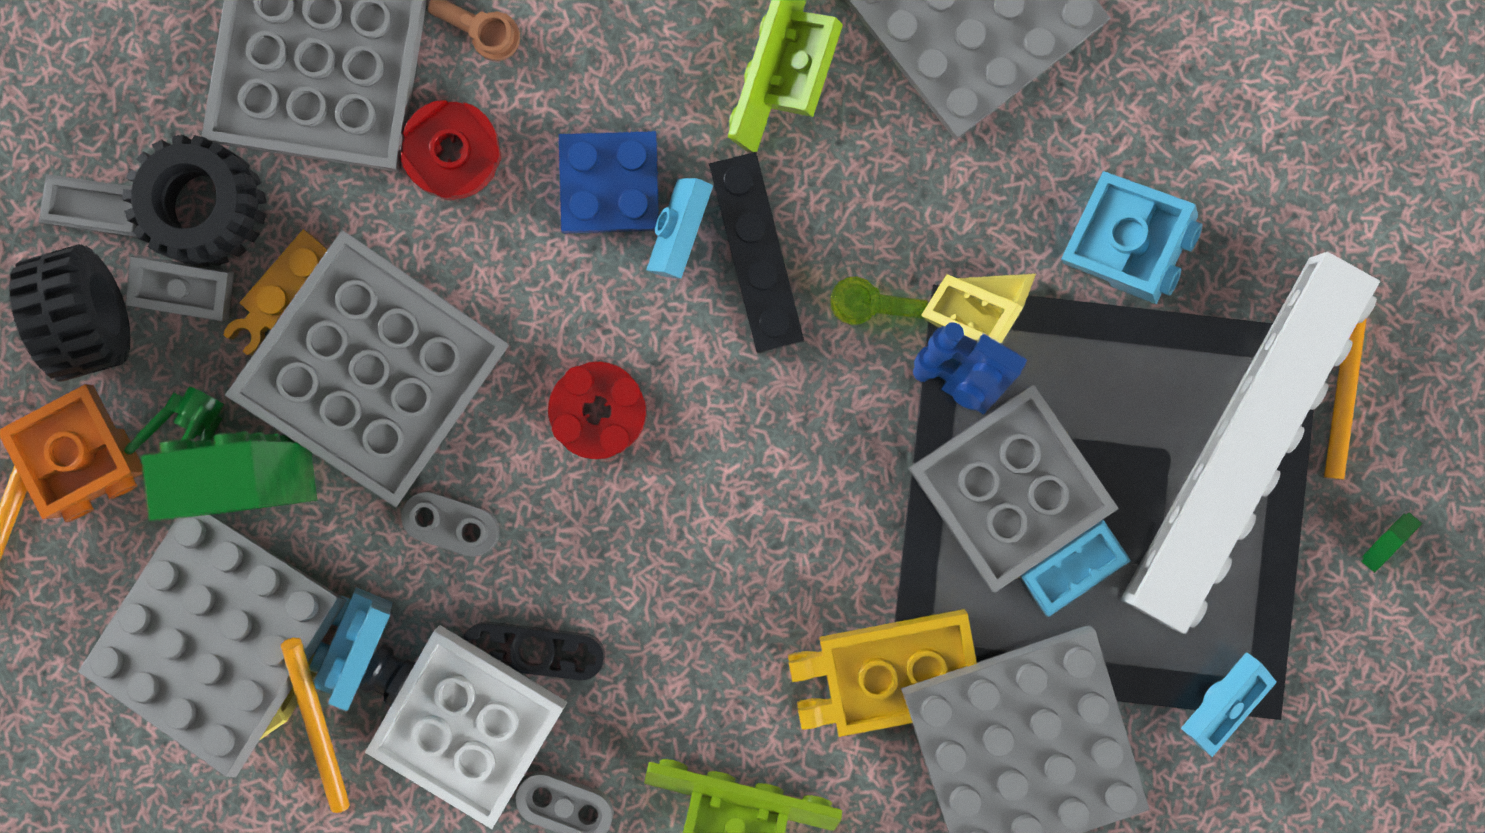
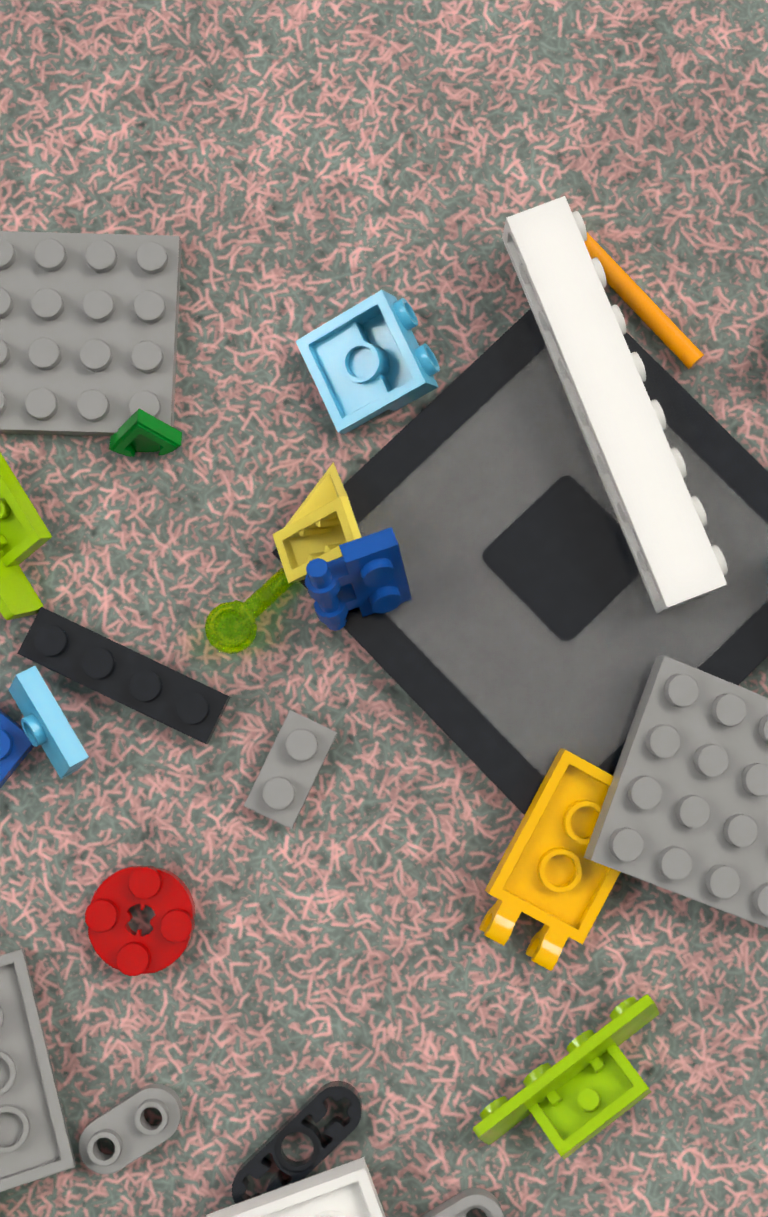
camera: 50 degrees left, 5 degrees down
(789, 428) = (290, 769): none -> light grey plate
(942, 119) = (145, 434): none -> green tile
(1013, 488) = (492, 626): light grey plate -> none
(1075, 568) = (598, 629): medium azure plate -> none

